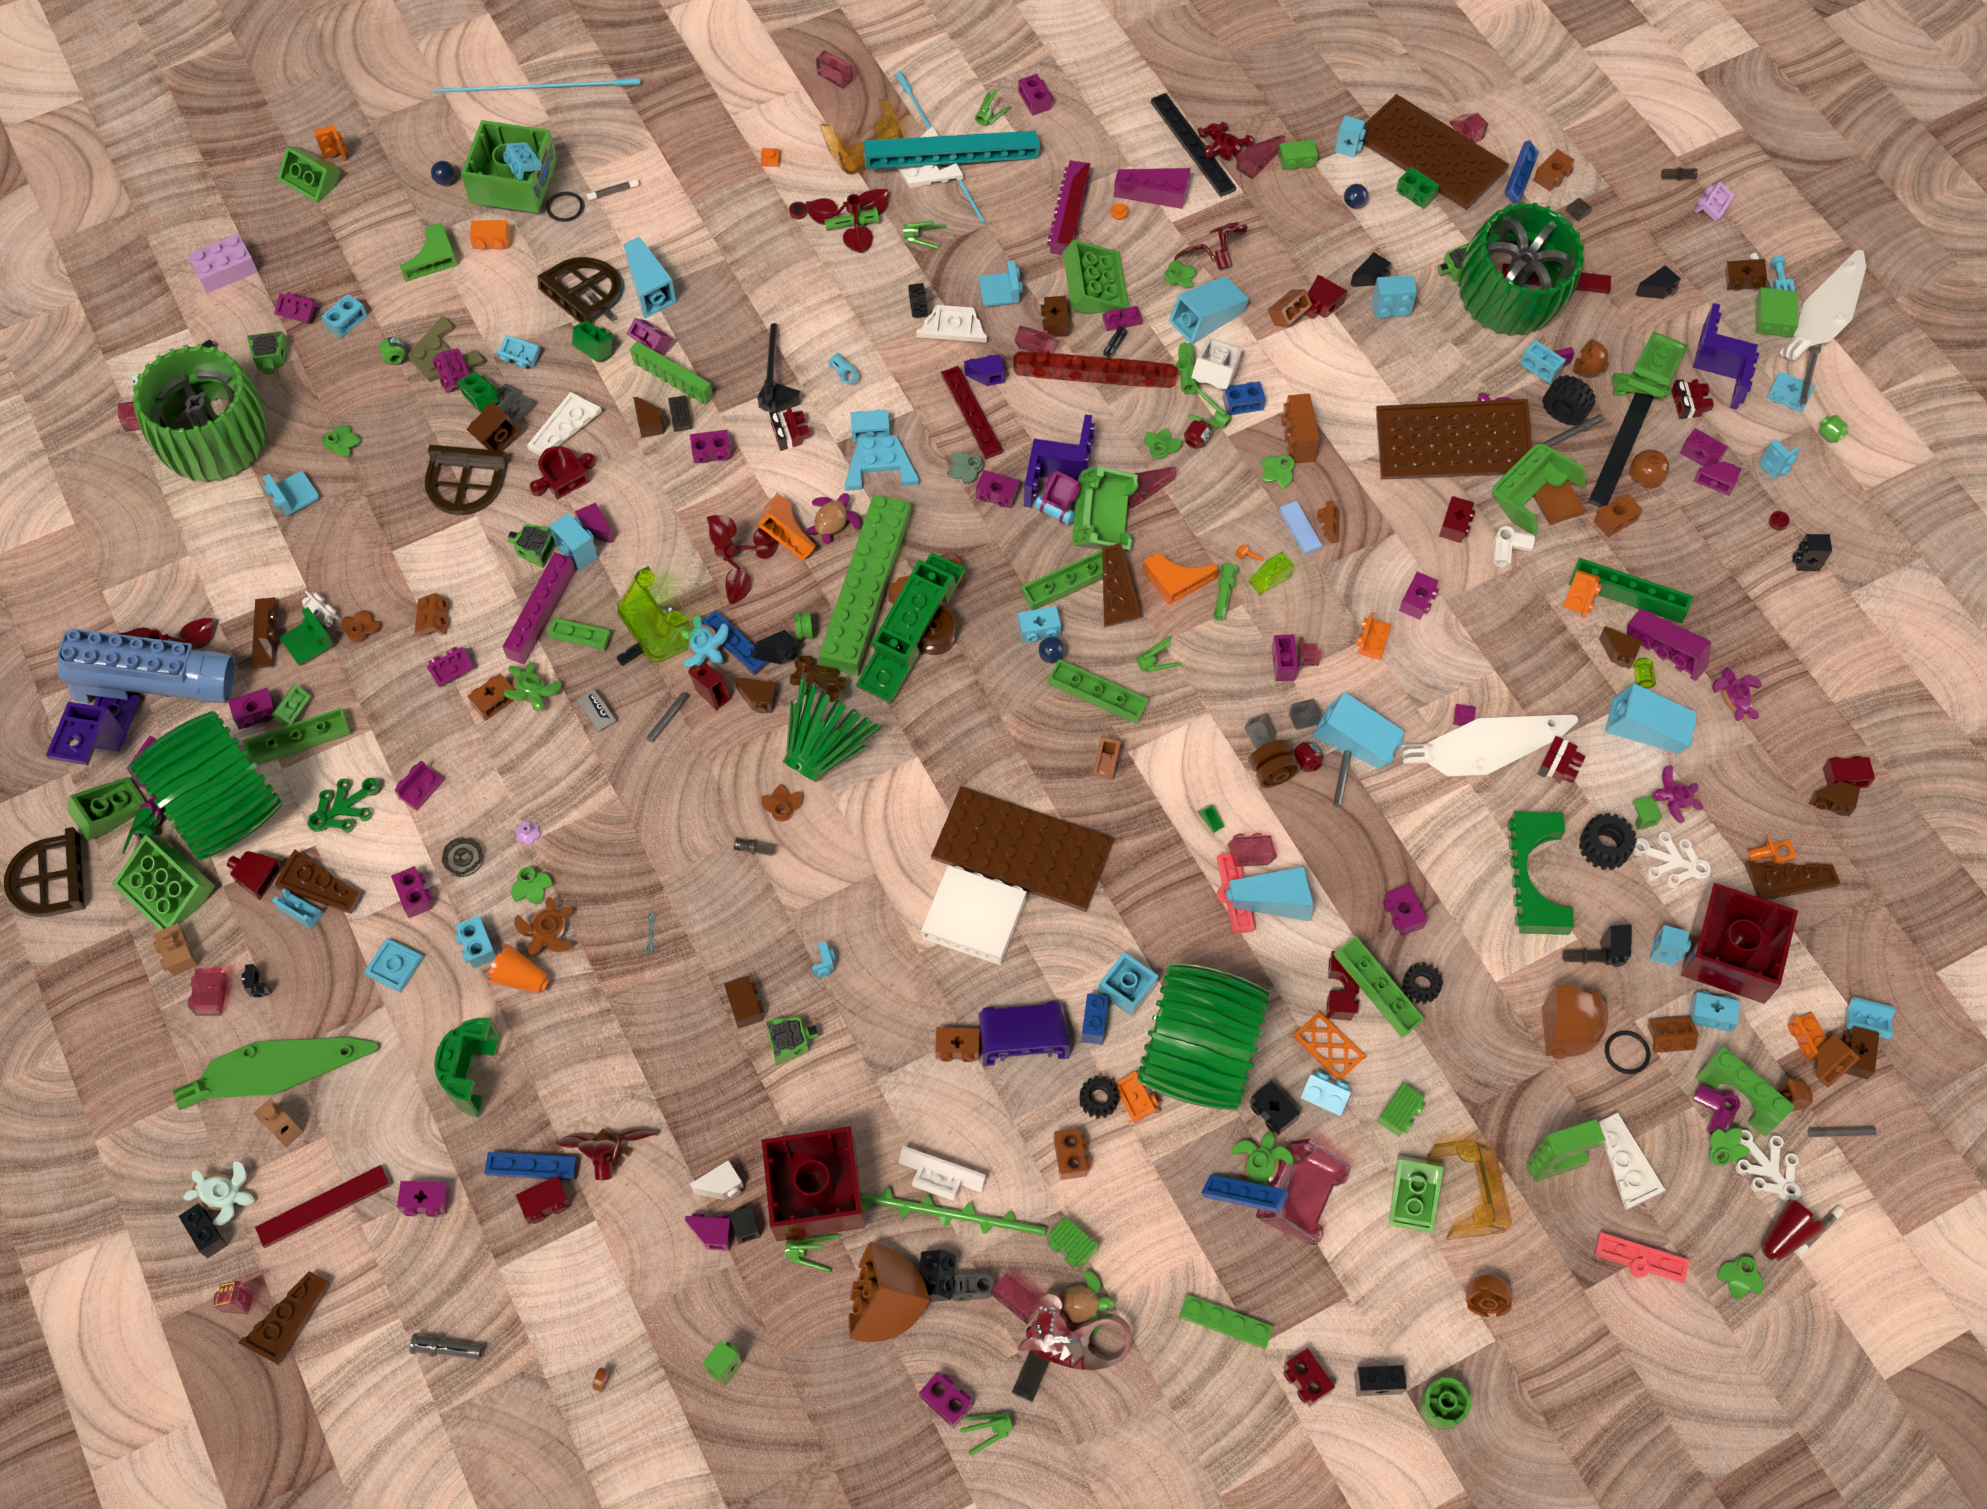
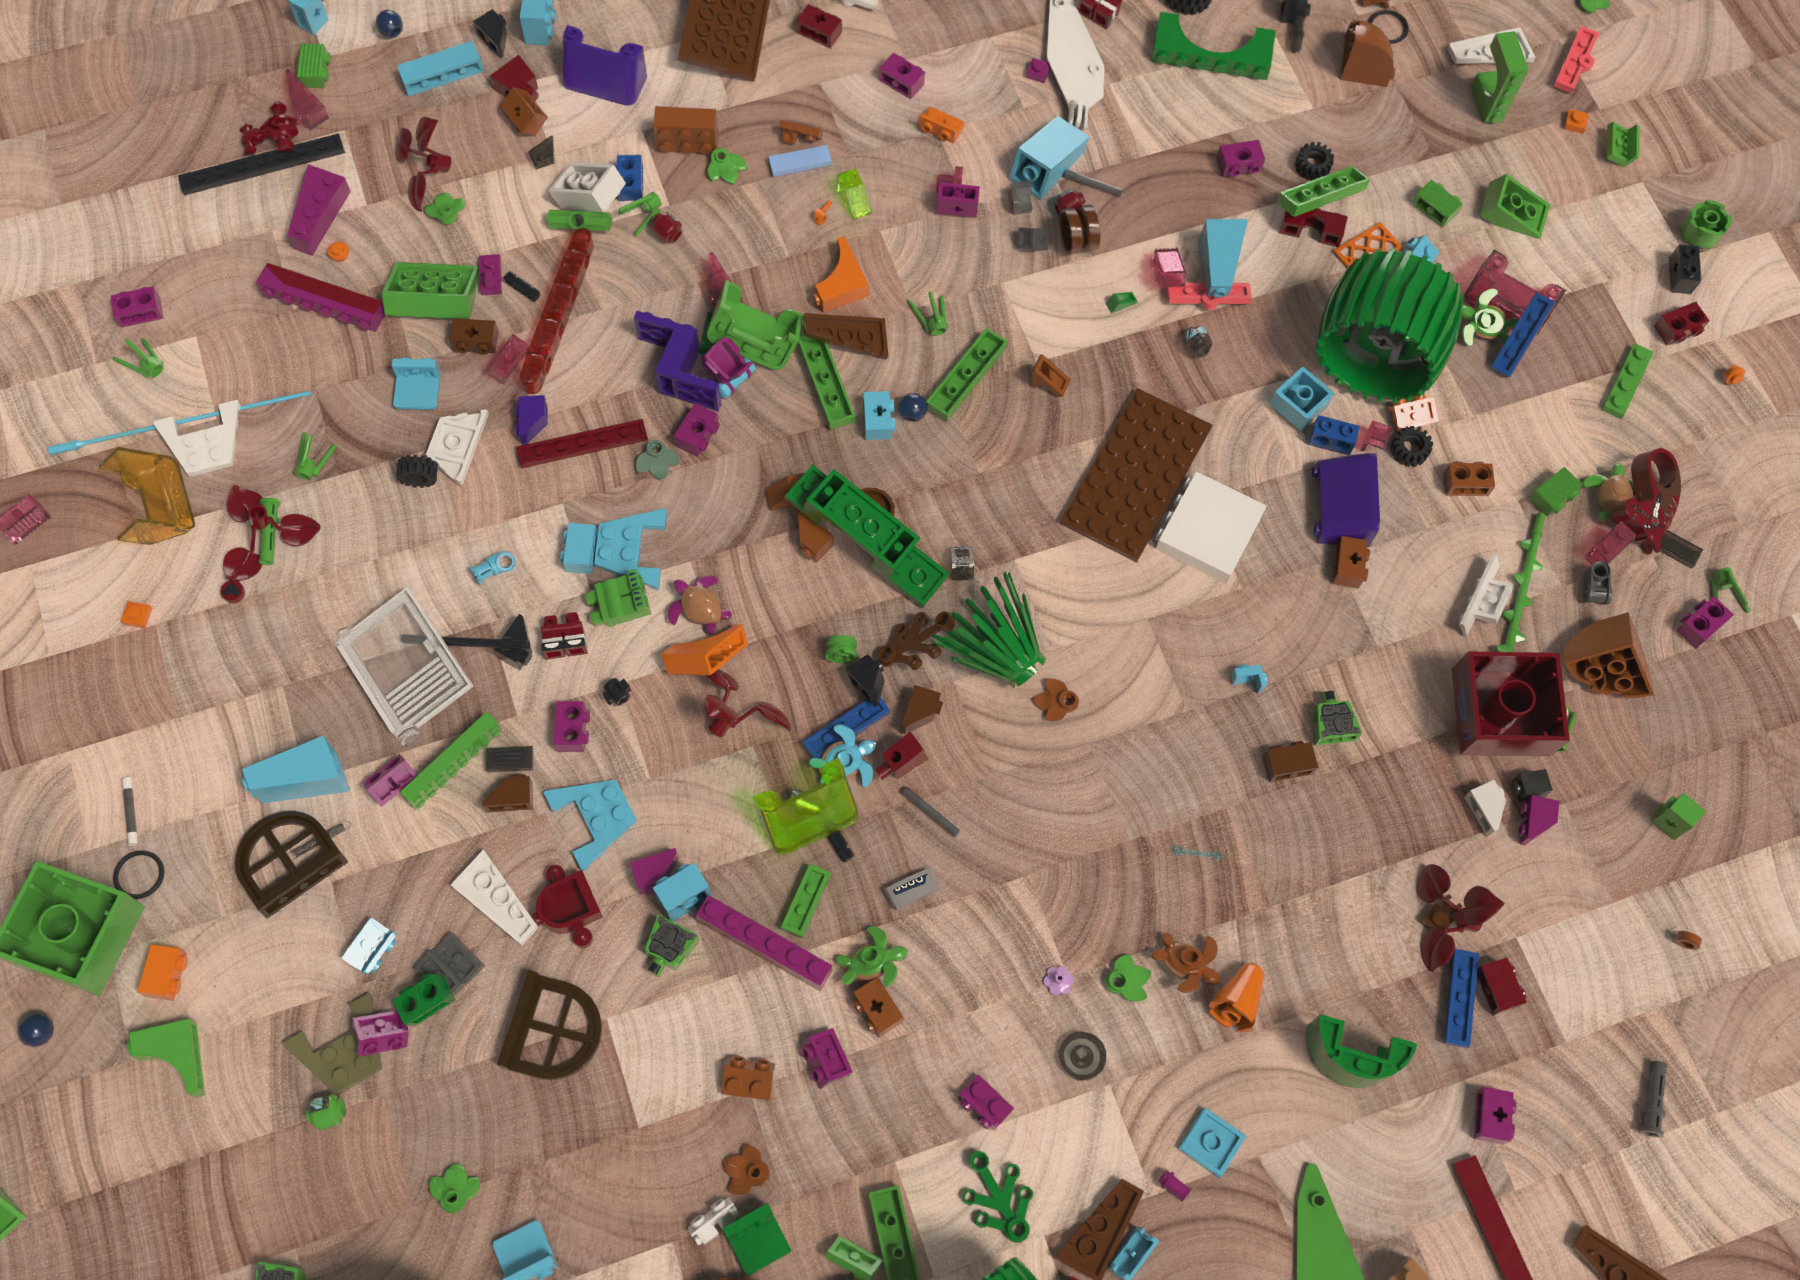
camera: 85 degrees left, 5 degrees up
(295, 308) = (213, 1247): magenta bracket -> none
(344, 316) = (252, 1173): medium azure brick -> none
(355, 936) = (1174, 1185): none -> magenta pin
(409, 893) = (1128, 1120): magenta brick -> none
(479, 940) = (1194, 1038): medium azure brick -> none
(493, 428) = (494, 978): reddish brown brick -> none
(521, 159) = (83, 898): medium azure bracket -> none
(592, 341) = (379, 850): green brick -> none
(643, 483) = (603, 811): none -> medium azure wing
(744, 472) = (616, 691): none -> black gear
(746, 325) = (403, 665): none -> clear door
(754, 846) = (1107, 733): clear smoke axle -> none
(825, 458) = (619, 600): none -> bright green hips
(865, 585) = (796, 578): bright green brick -> none
(904, 709) = (962, 563): none -> clear smoke bracket
(937, 1271) = (1589, 613): black brick -> none
(950, 149) = (199, 405): teal brick -> none
(1100, 1059) = (1376, 436): none -> clear pink panel
(1163, 442) = (665, 265): bright green plate -> none
(1176, 885) = (1197, 341): none -> clear smoke head
(1207, 308) = (505, 188): medium azure slope -> none
(1225, 585) = (857, 237): bright green pin -> none
(1254, 332) = (543, 153): none -> clear smoke piece
(1255, 1438) = (1734, 374): none -> orange plate
(1321, 241) = (440, 68): none -> medium azure brick
(1347, 368) = (600, 71): none -> dark purple windscreen
(1488, 1295) = (1610, 171): dark orange cylinder -> none
(1494, 1213) = (1516, 153): clear yellow windscreen -> none
(1535, 1309) = (1622, 144): none -> bright green bracket
(1556, 1261) = (1576, 121): none -> orange plate

